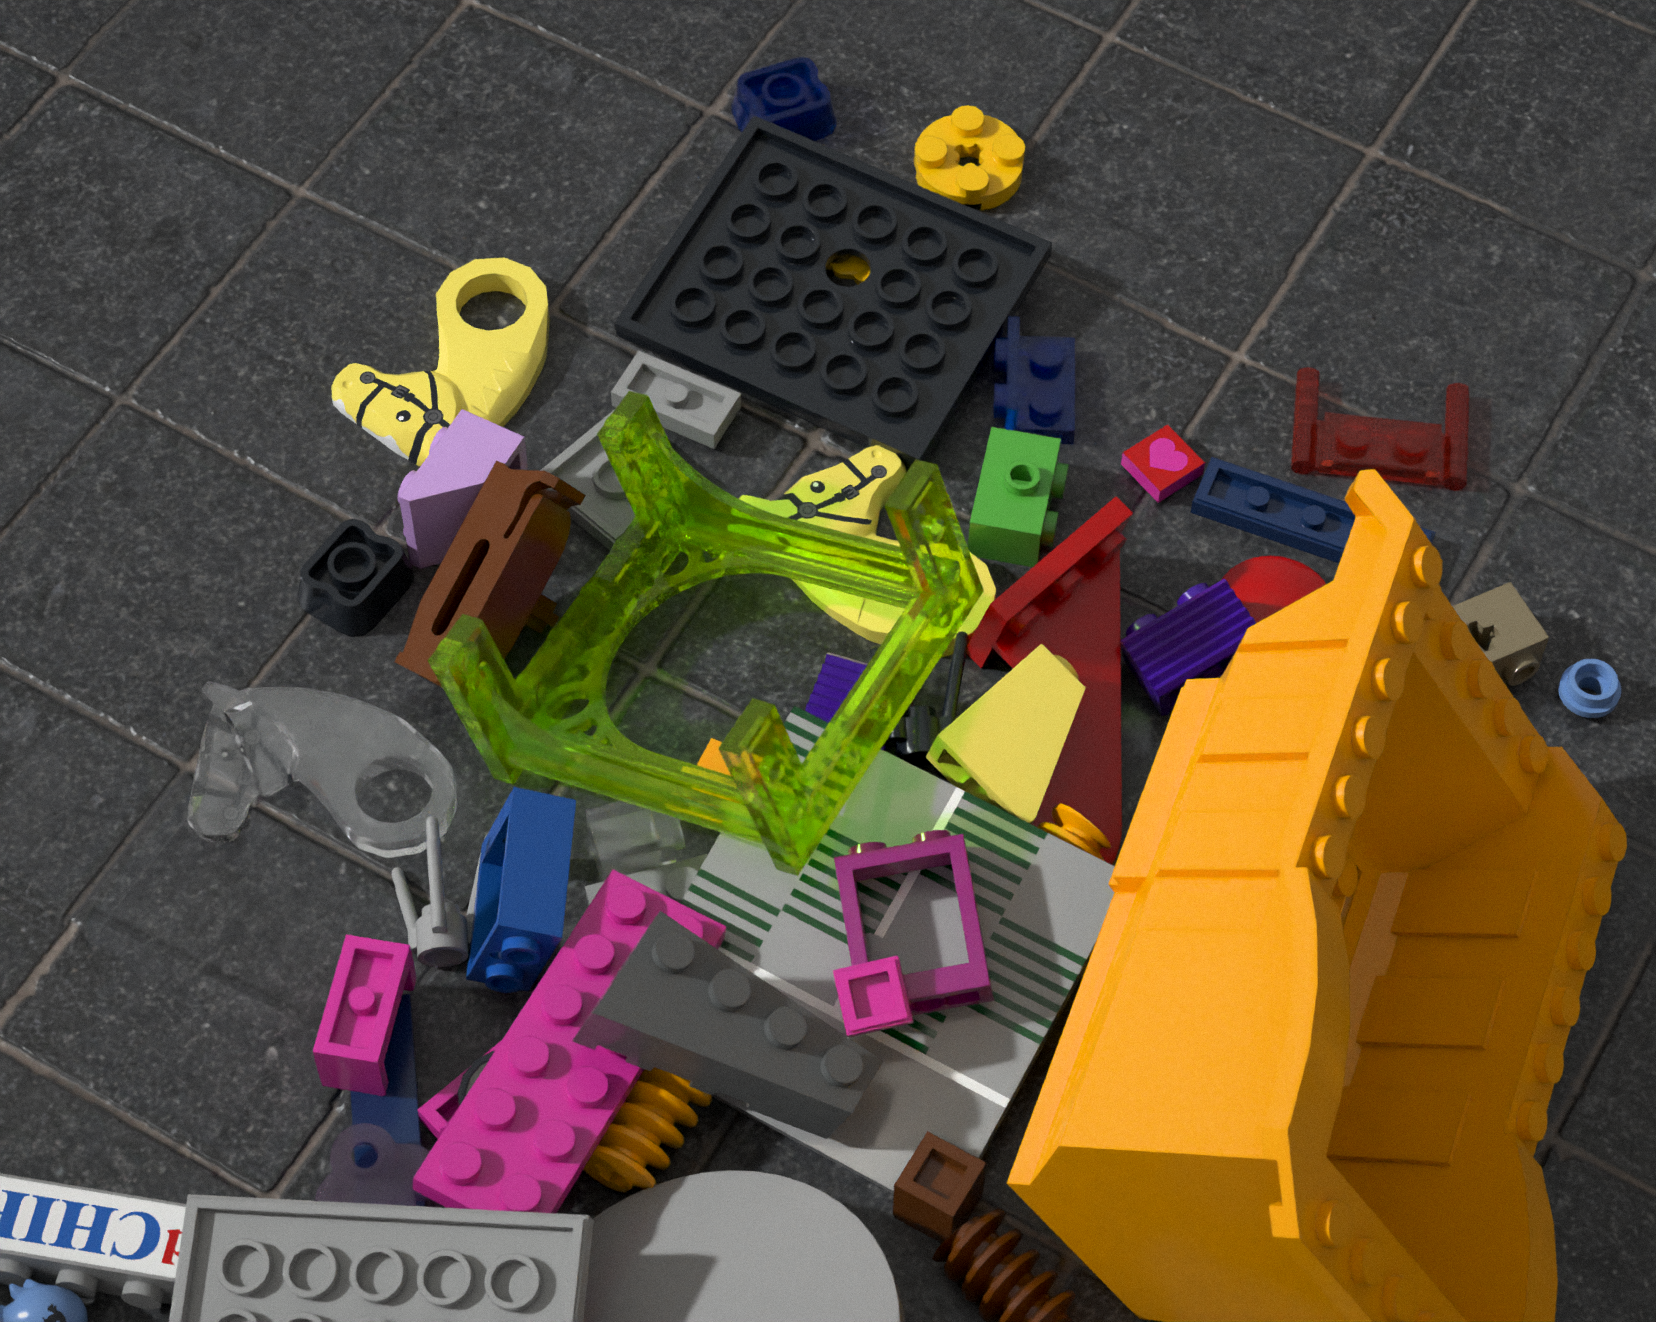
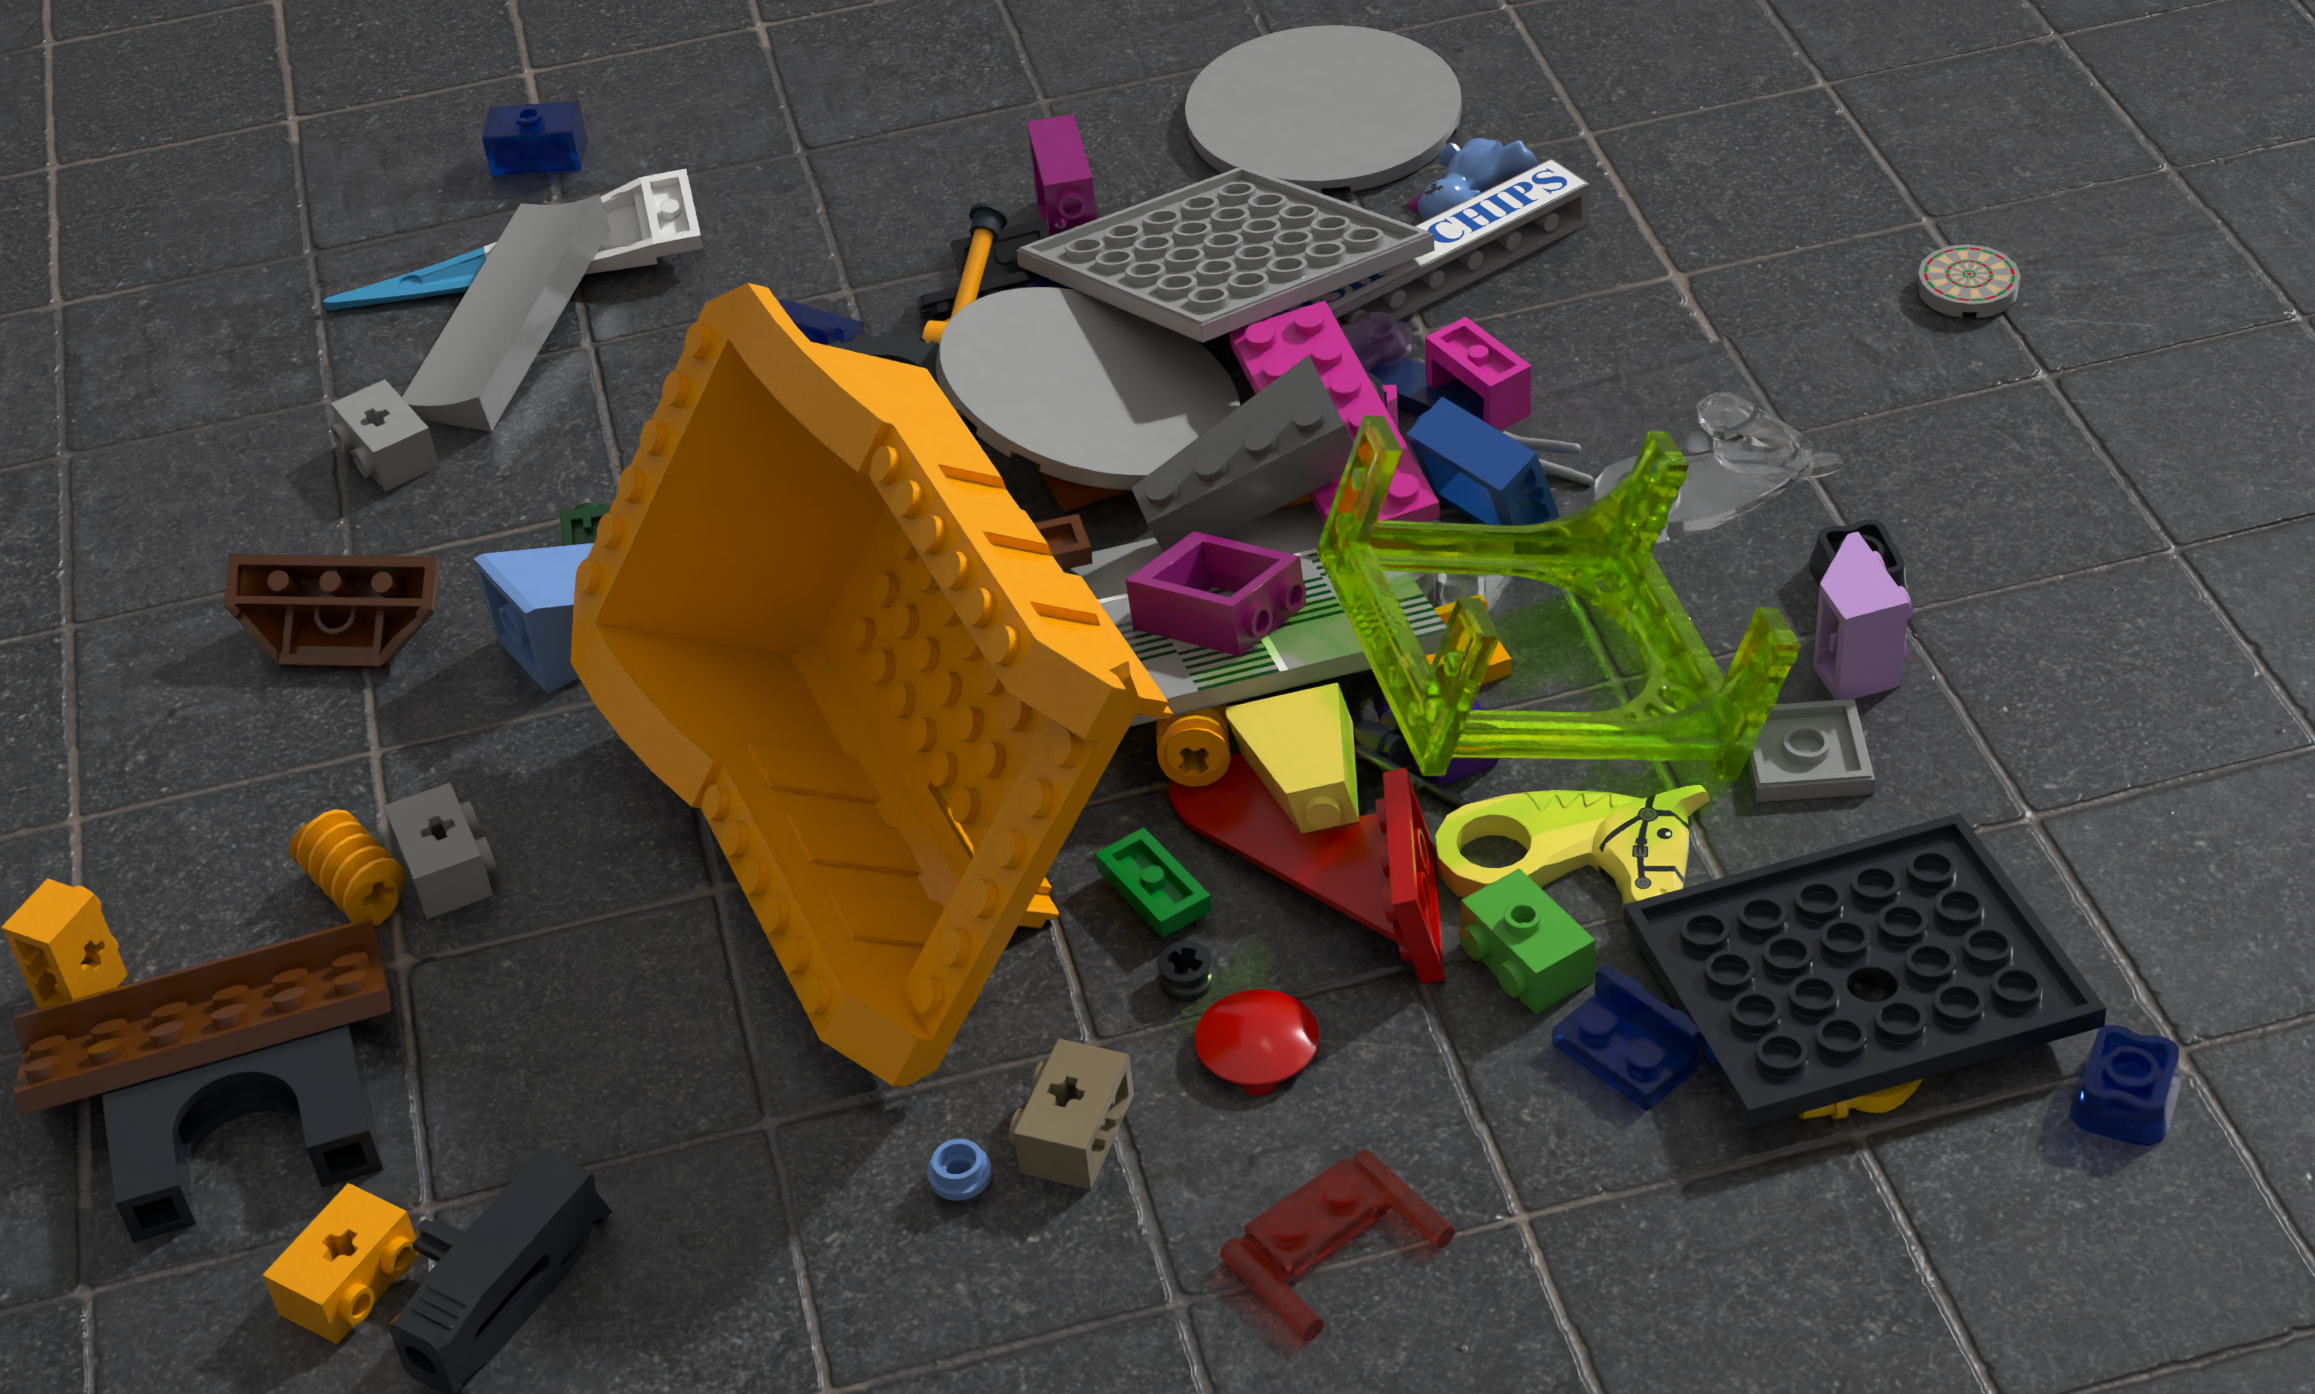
camera: 140 degrees right, 15 degrees down
(476, 368) = (1984, 723): light yellow animal -> none
(497, 564) = (1744, 574): reddish brown piece -> none
(680, 398) = (1845, 813): light grey plate -> none
(873, 996) = (1187, 527): dark pink tile -> none
(970, 135) = (1937, 1143): yellow plate -> none
(1162, 463) = (1464, 1071): tile -> none
(1186, 642) = (1272, 937): dark purple brick -> none
(1275, 510) = (1302, 1127): dark blue tile -> none

